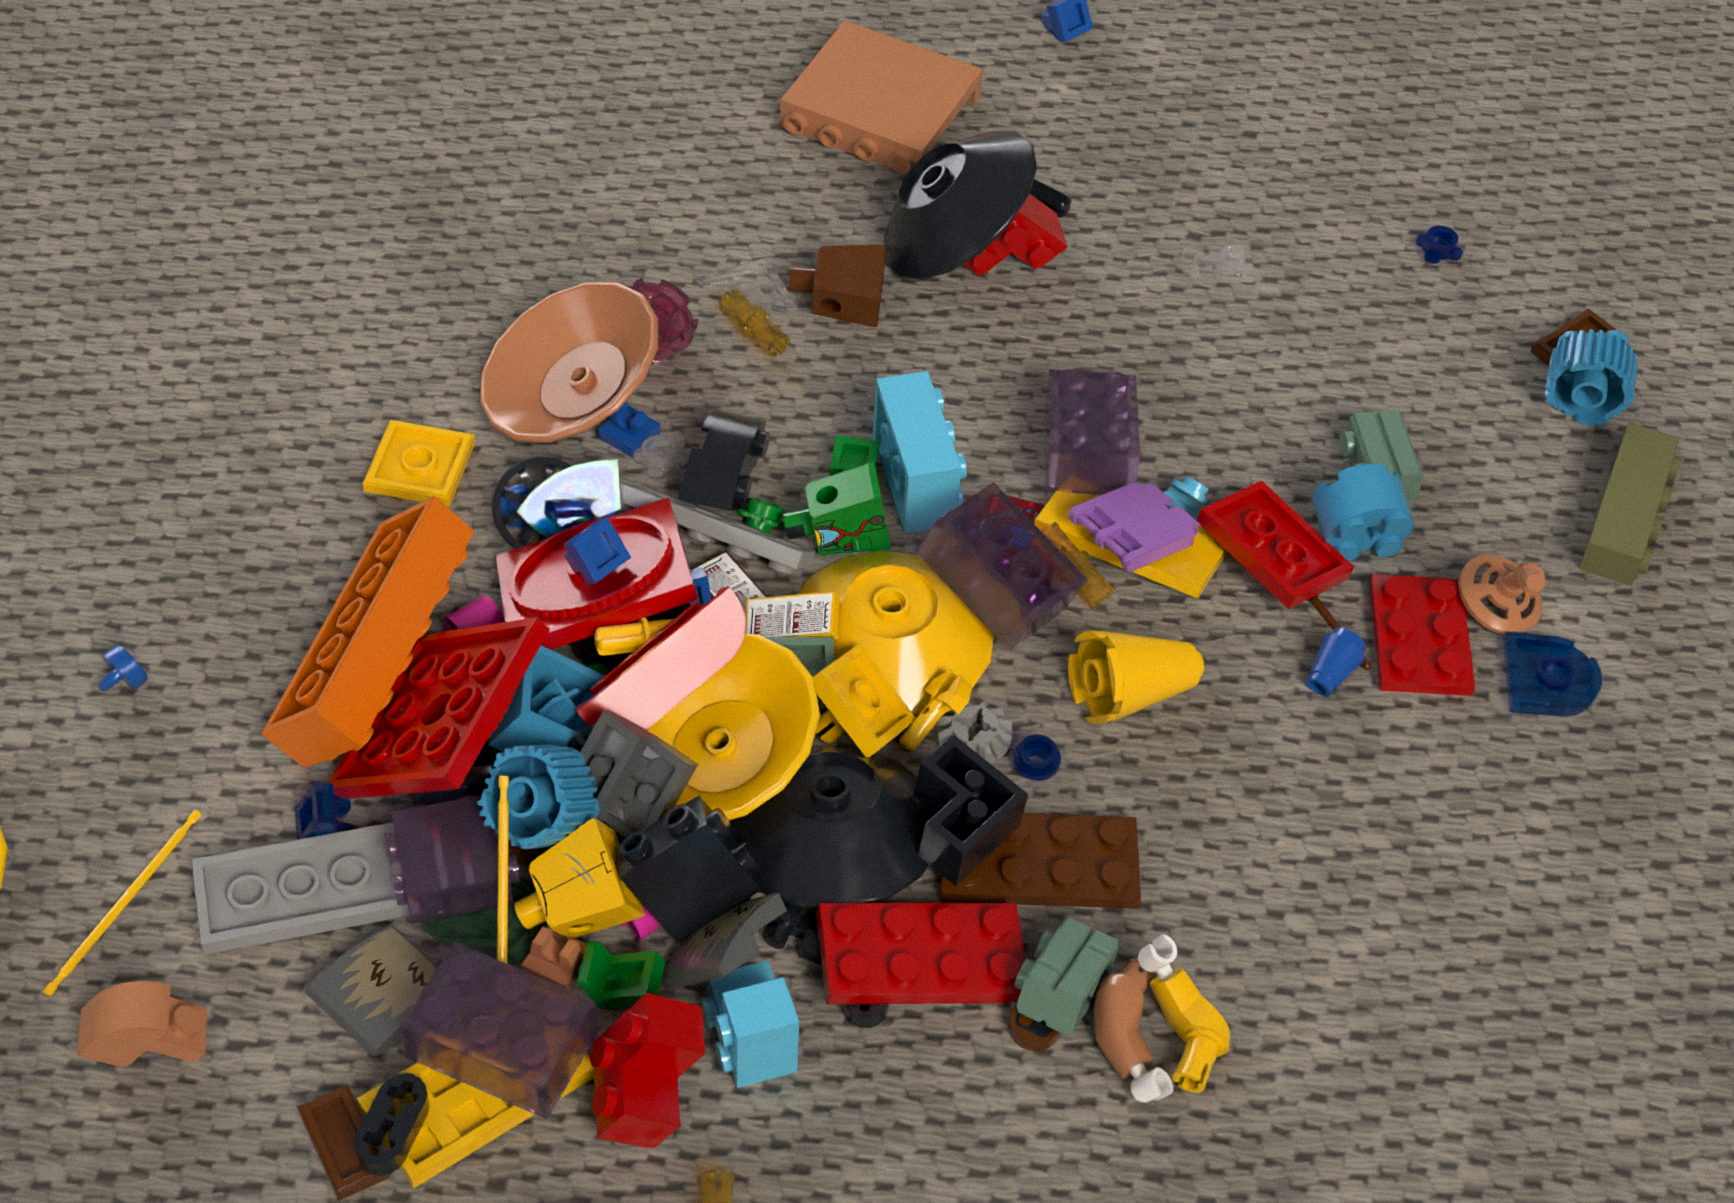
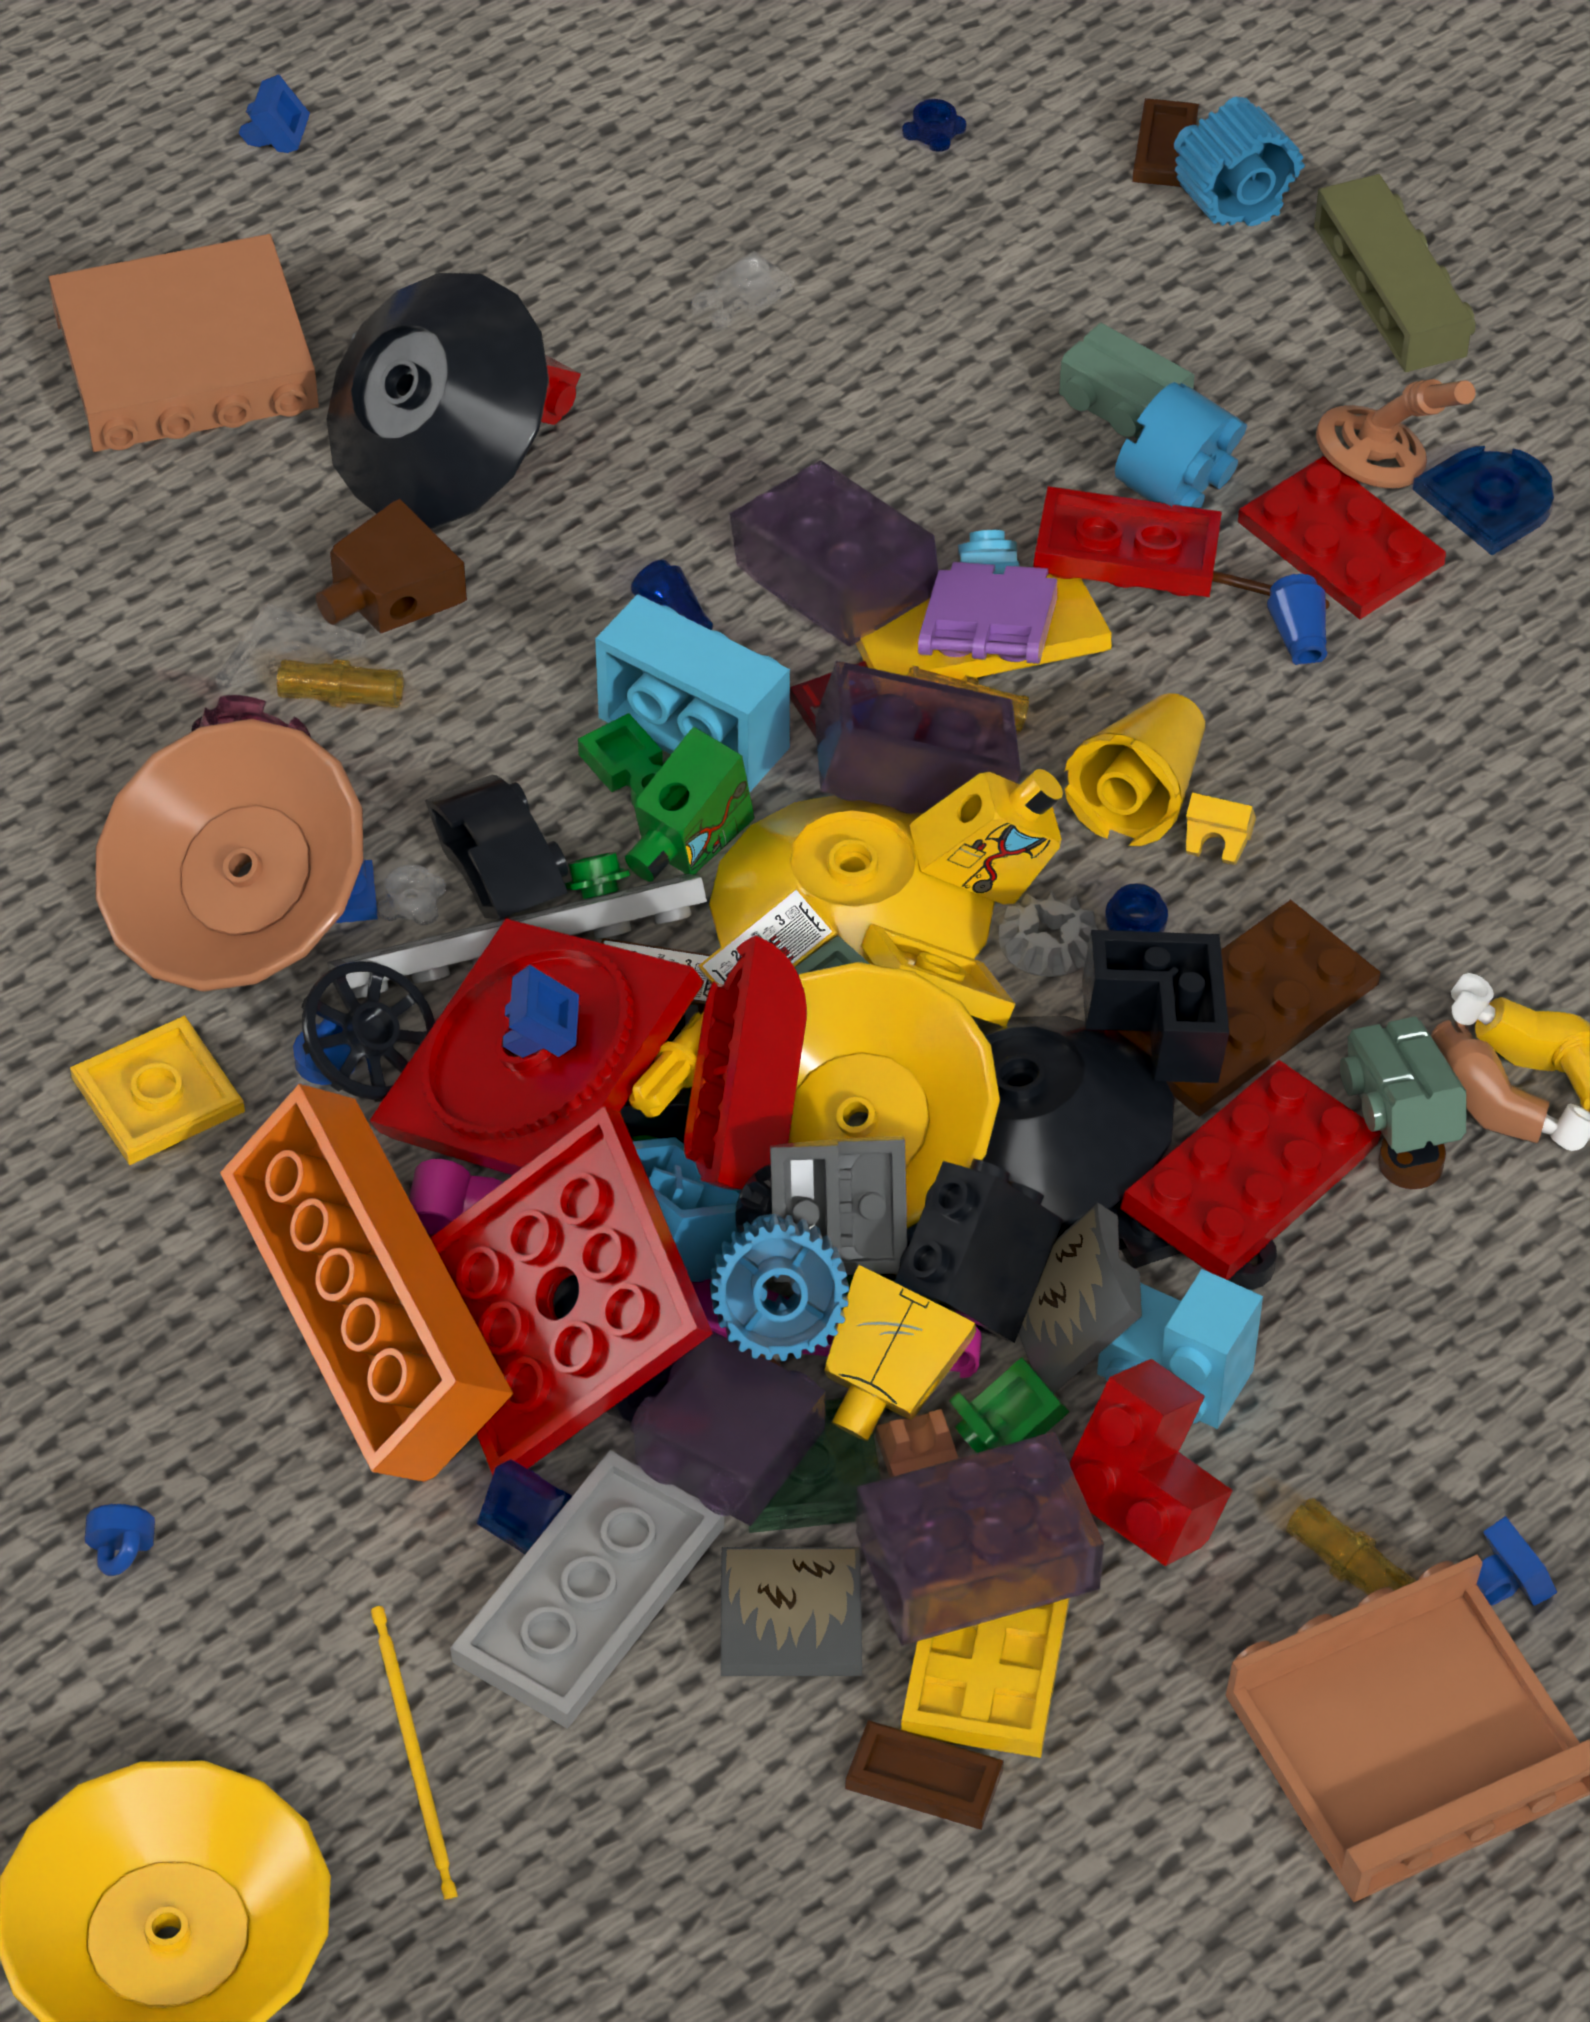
camera: 40 degrees left, 0 degrees up
(138, 1018) = (602, 1833): nougat brick -> none
(401, 1129) = (985, 1701): black beam -> none
(502, 917) = (815, 1383): yellow piece -> none
(573, 497) = (405, 994): clear blue shield -> none
(947, 694) = (998, 928): yellow bar -> none
(978, 398) = (670, 588): none -> clear blue cone
(981, 644) = (991, 834): none -> yellow torso
(1148, 745) = (1221, 819): none -> yellow tile

